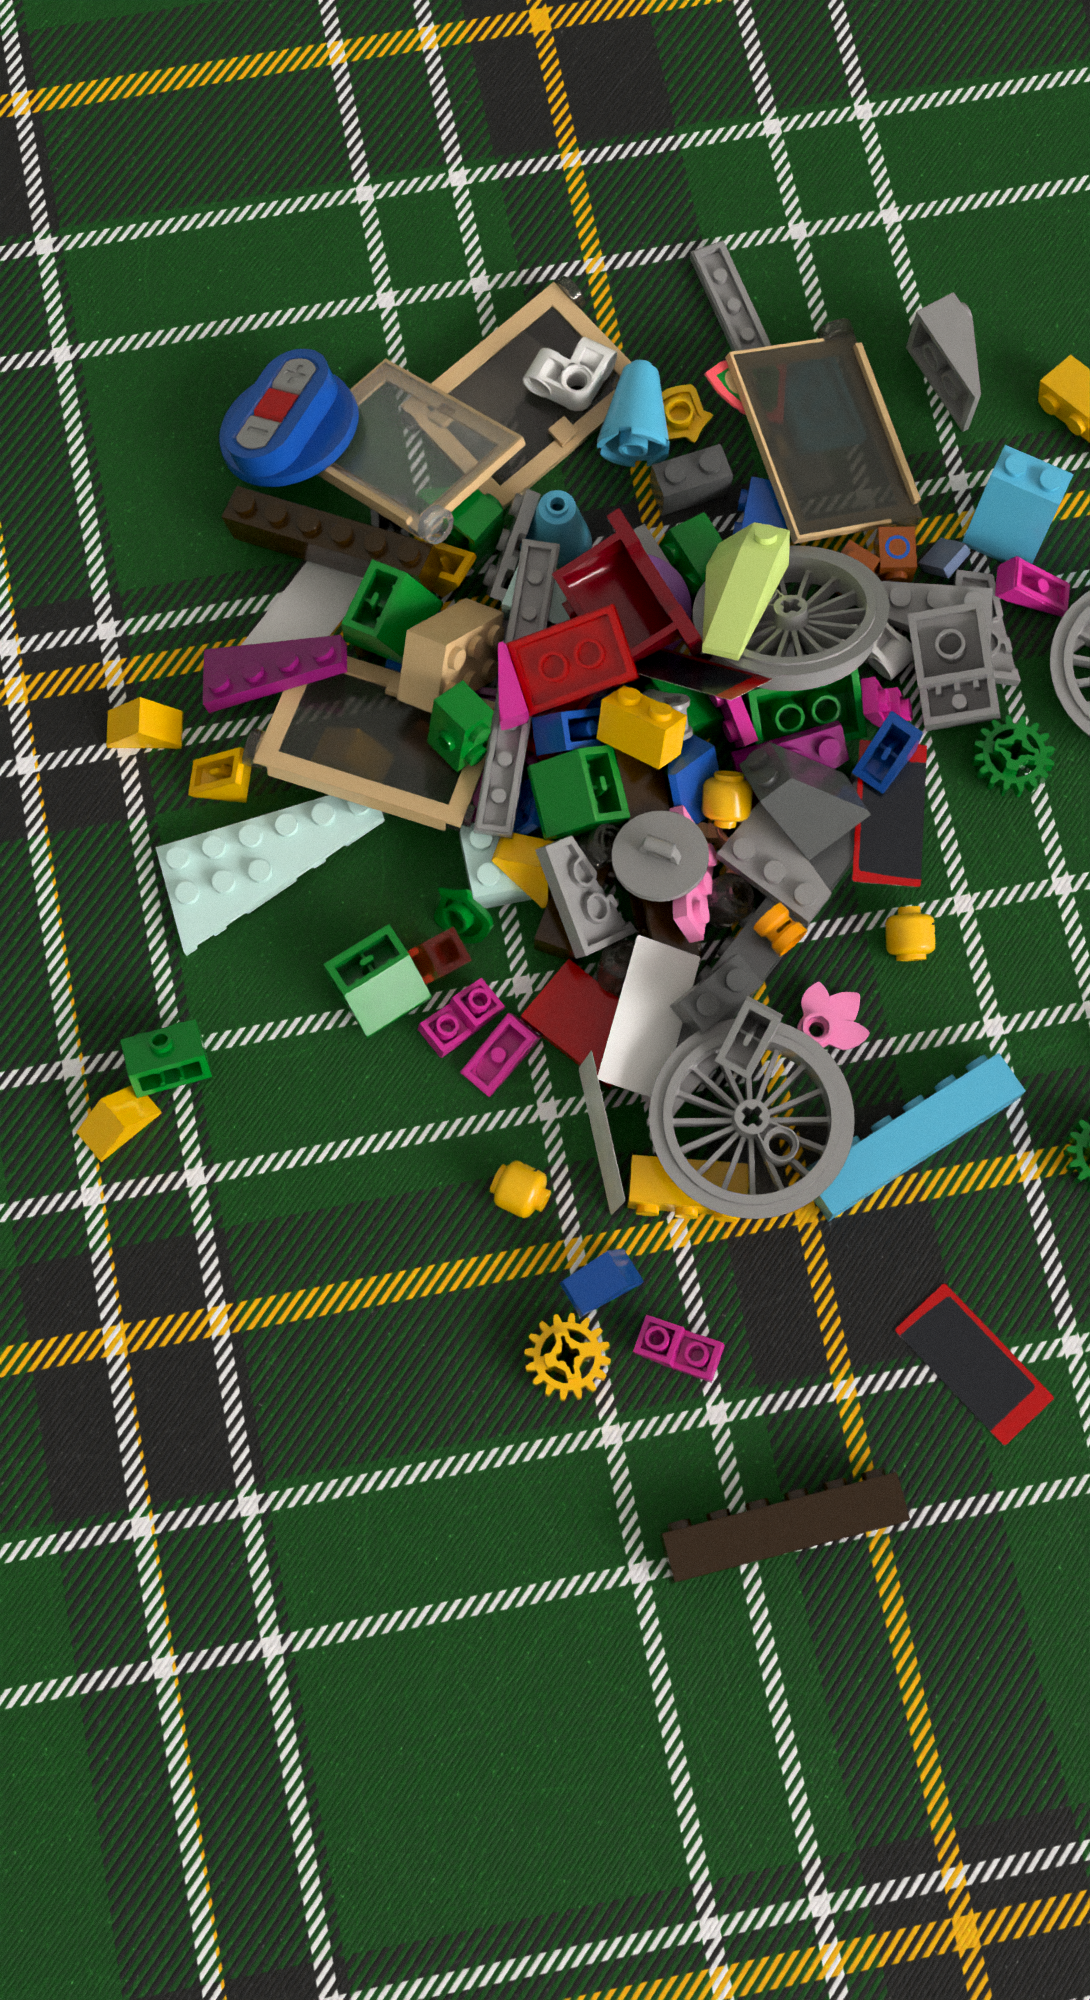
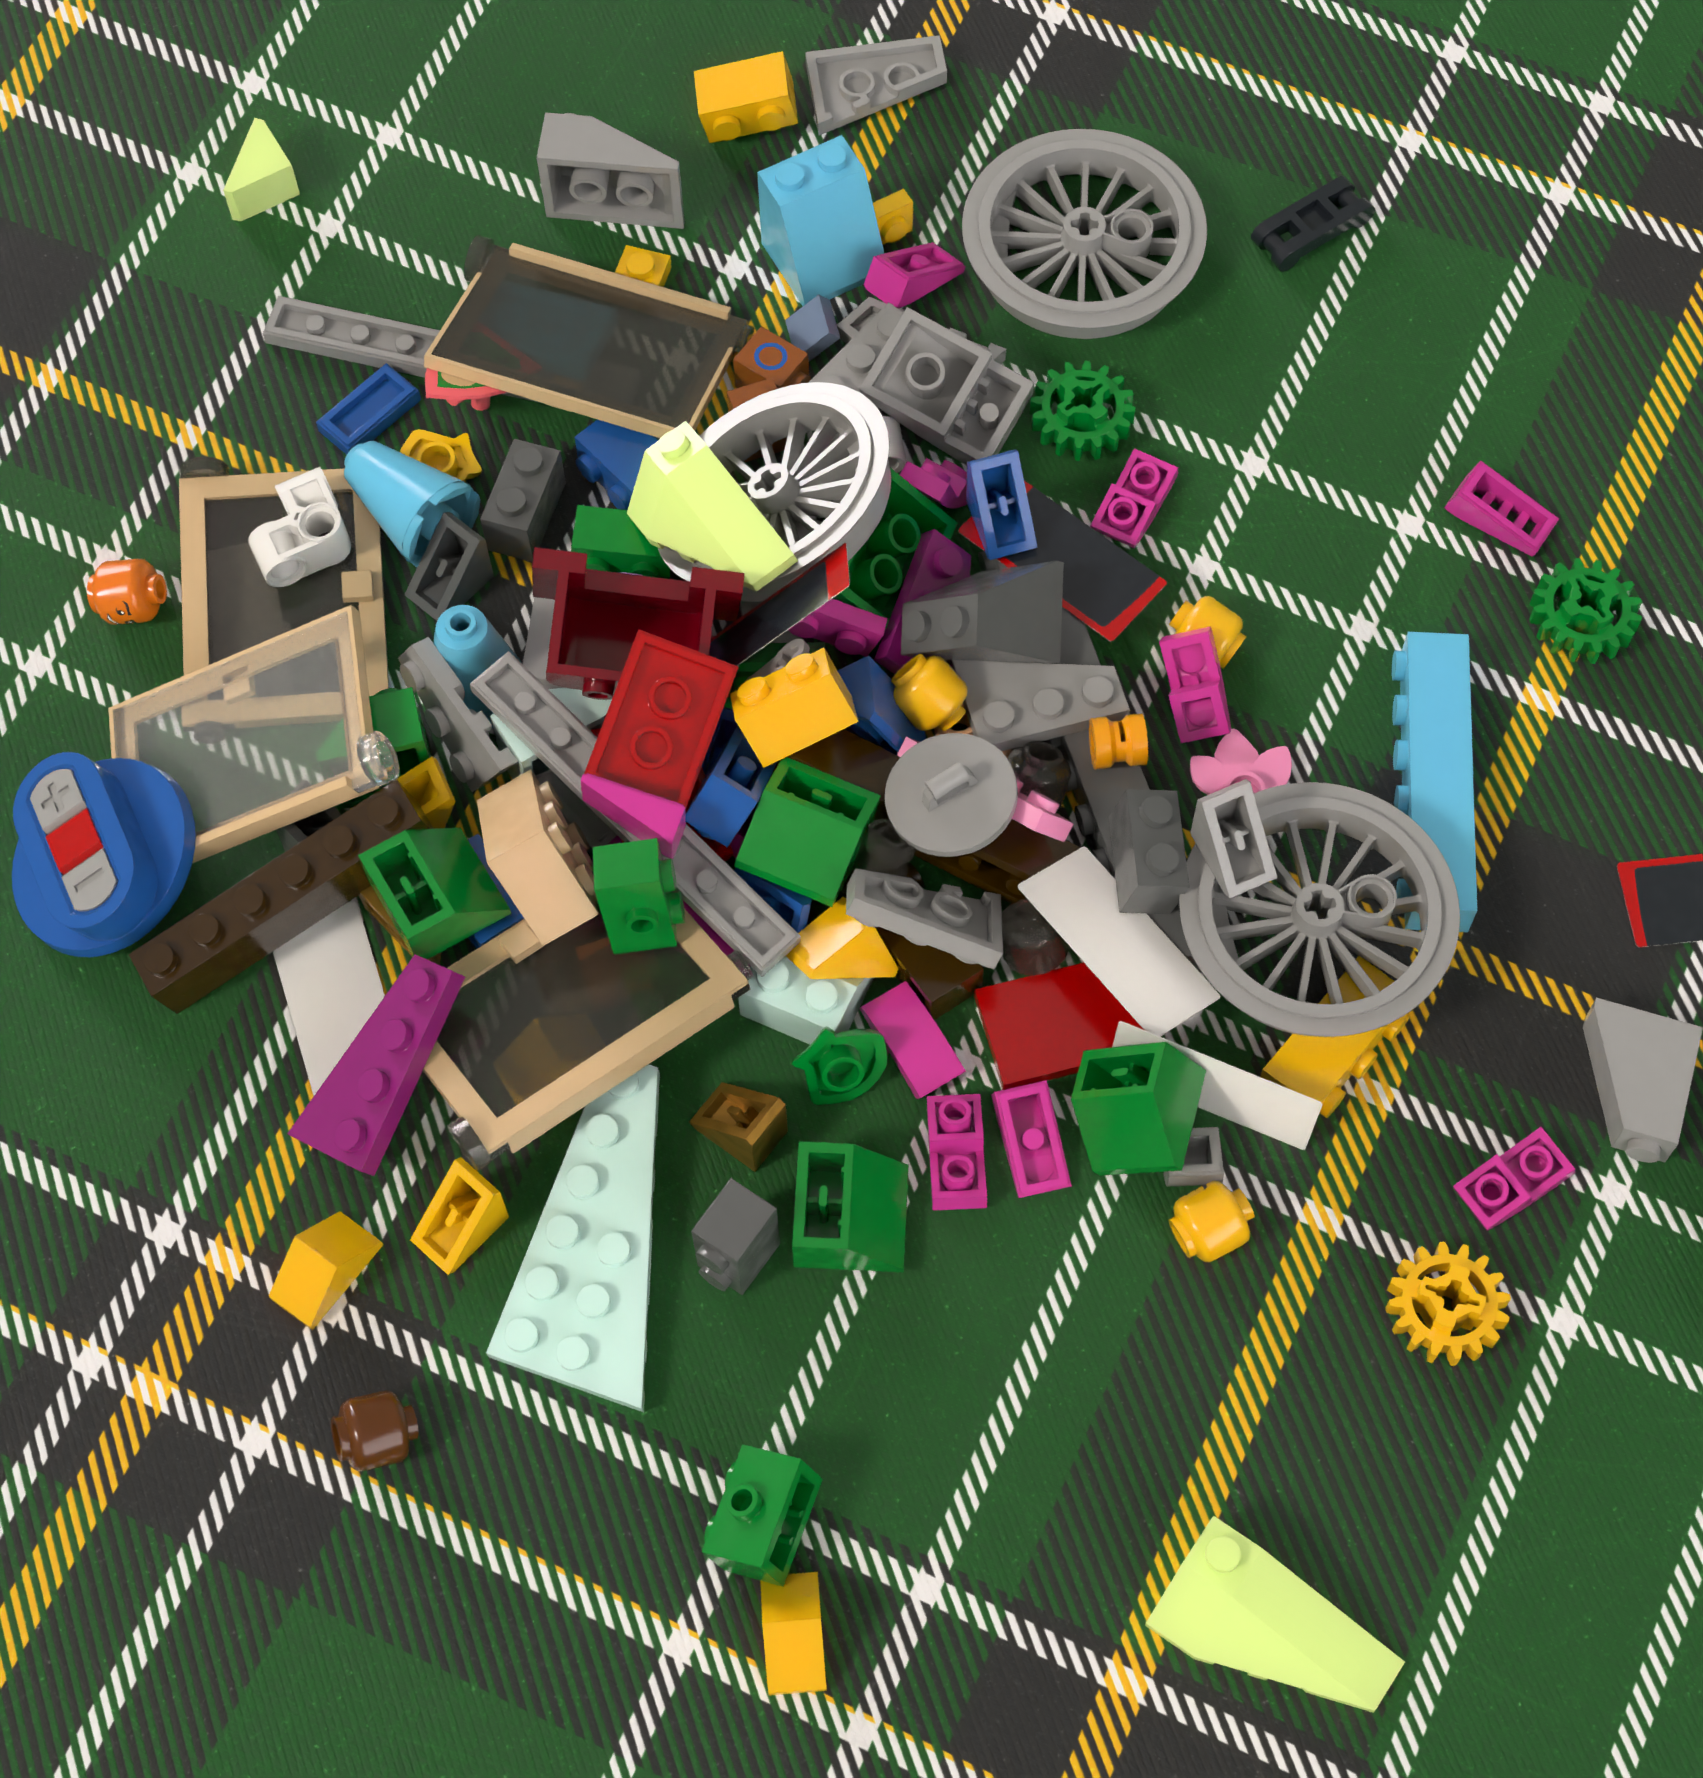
camera: 50 degrees left, 10 degrees down
(69, 821) = (373, 1430): none -> reddish brown head
(300, 1366) = (1258, 1617): none -> yellowish green wedge
(309, 930) = (735, 1238): none -> dark grey brick
(388, 887) = (742, 1123): none -> pearl gold slope
(439, 955) = (873, 1114): clear red brick -> none
(461, 309) = (126, 591): none -> orange head
(510, 945) = (913, 1039): none -> dark pink slope
(553, 1099) = (1136, 1107): none -> green slope
(553, 1152) = (1202, 1160): none -> light grey brick
(601, 1281) = (1386, 1206): blue slope -> none
(611, 474) = (451, 568): none -> dark grey slope
(687, 348) = (368, 409): none -> blue tile
(795, 165) = (260, 175): none -> yellowish green slope
(801, 1384) = (1641, 1076): none -> light grey slope
(862, 957) = (1195, 685): none -> dark pink slope
(911, 430) = (644, 265): none -> yellow plate
(976, 830) = (1135, 498): none -> dark pink slope
(1060, 546) = (894, 216): none -> yellow plate

